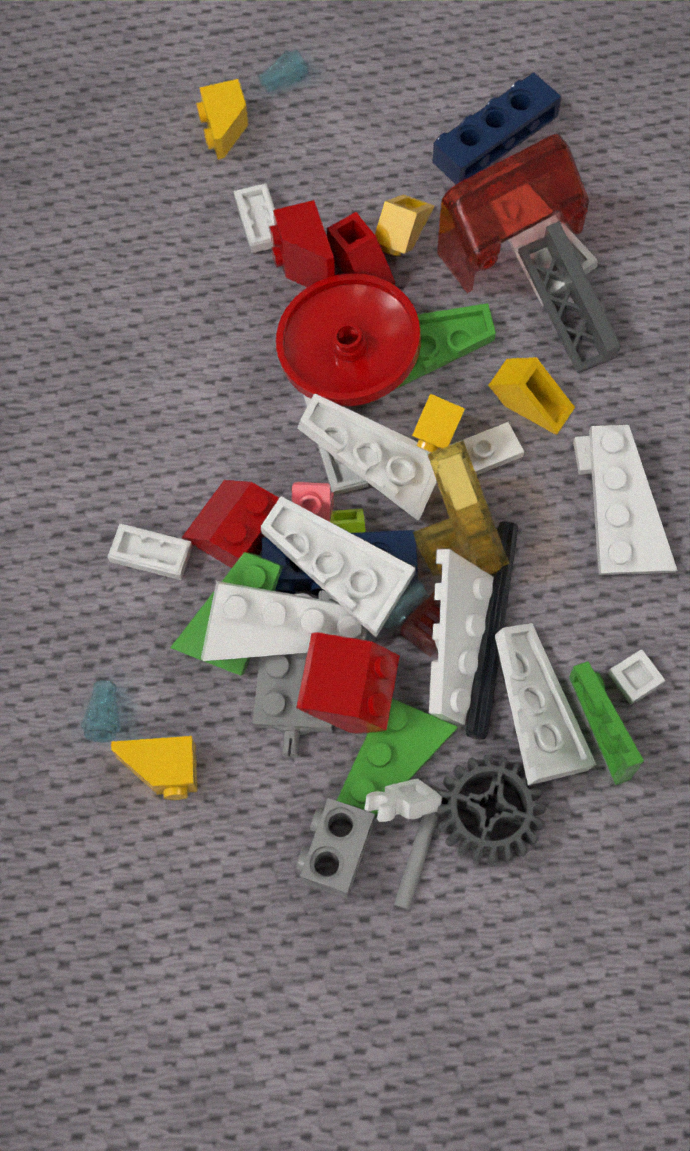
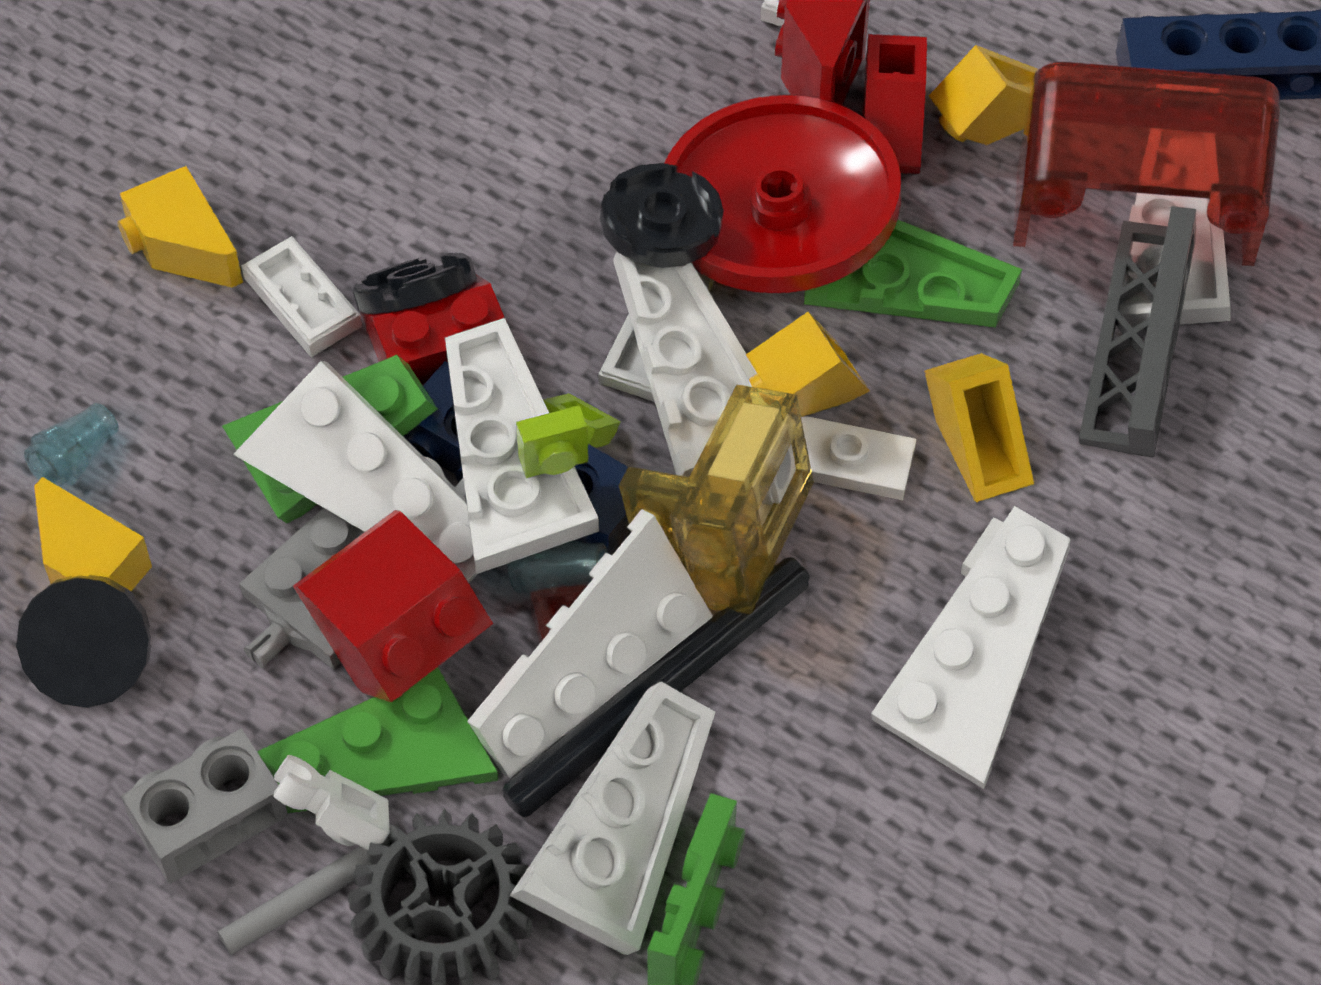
camera: 35 degrees right, 10 degrees down
(58, 559) = (178, 230): none -> yellow slope
(206, 810) = (84, 640): none -> black tile
(209, 509) = (413, 284): none -> black tile
(307, 389) = (661, 215): none -> black tile
(314, 498) = (555, 361): coral bracket -> none
(370, 546) = (552, 442): none -> lime plate
(636, 677) = (797, 879): white plate -> none

